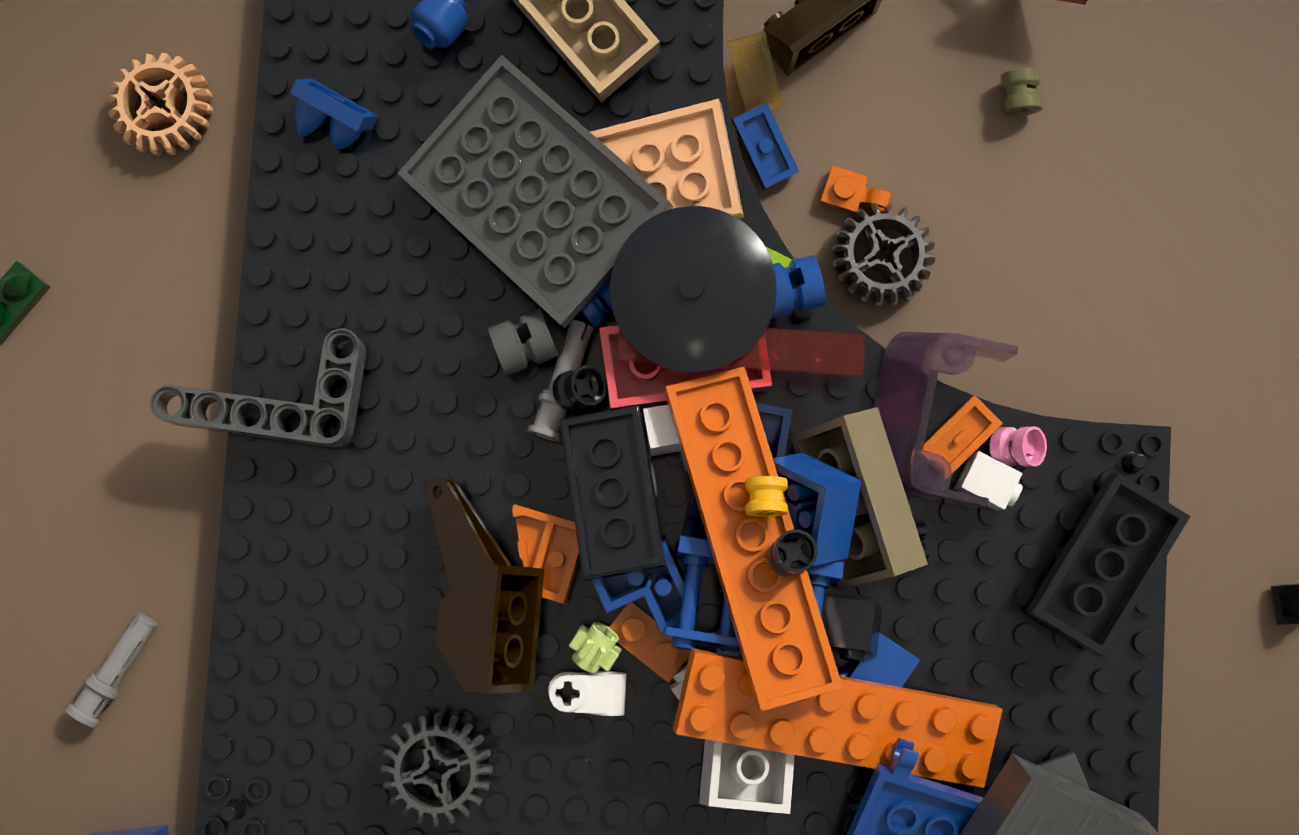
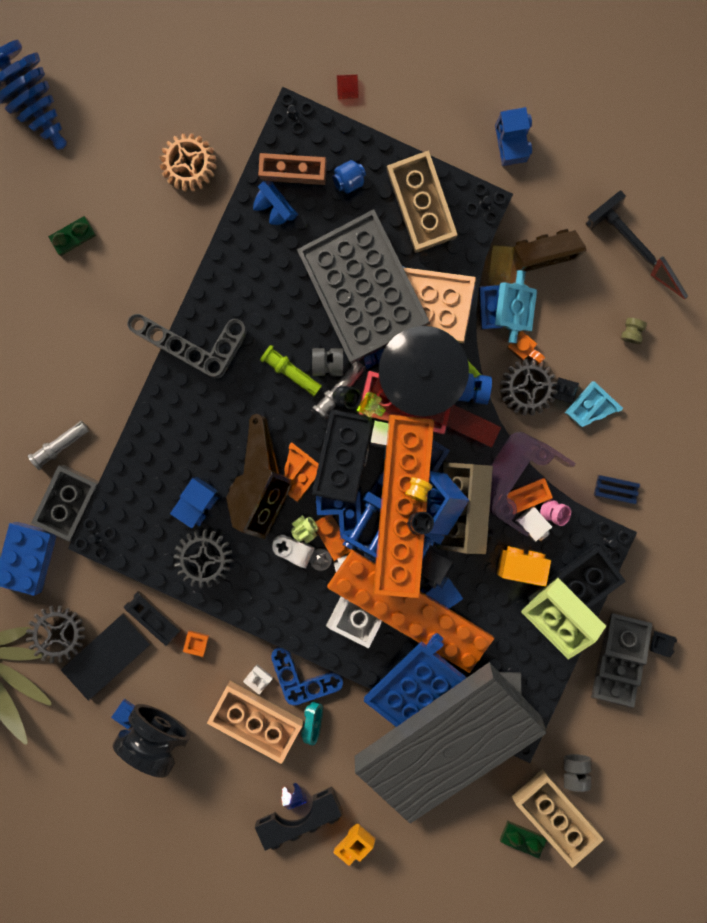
camera: 20 degrees right, 5 degrees up
(158, 767) = (65, 502): none -> dark grey brick
(338, 41) = (292, 169): none -> nougat brick
(383, 675) = (194, 501): none -> blue brick
(447, 378) = (282, 365): none -> lime pin
(625, 384) = (371, 405): none -> clear neon green tile
(644, 689) = (320, 559): none -> flat silver tile
(807, 128) = (516, 306): none -> medium azure plate
(949, 236) = (565, 390): none -> black tile
(1002, 563) = (522, 567): none -> light orange brick
(1003, 244) = (592, 405): none -> medium azure wing
(1111, 625) = (564, 619): none -> yellowish green slope
(1136, 364) = (634, 493): none -> dark blue tile
(1237, 661) = (621, 660): none -> dark grey slope

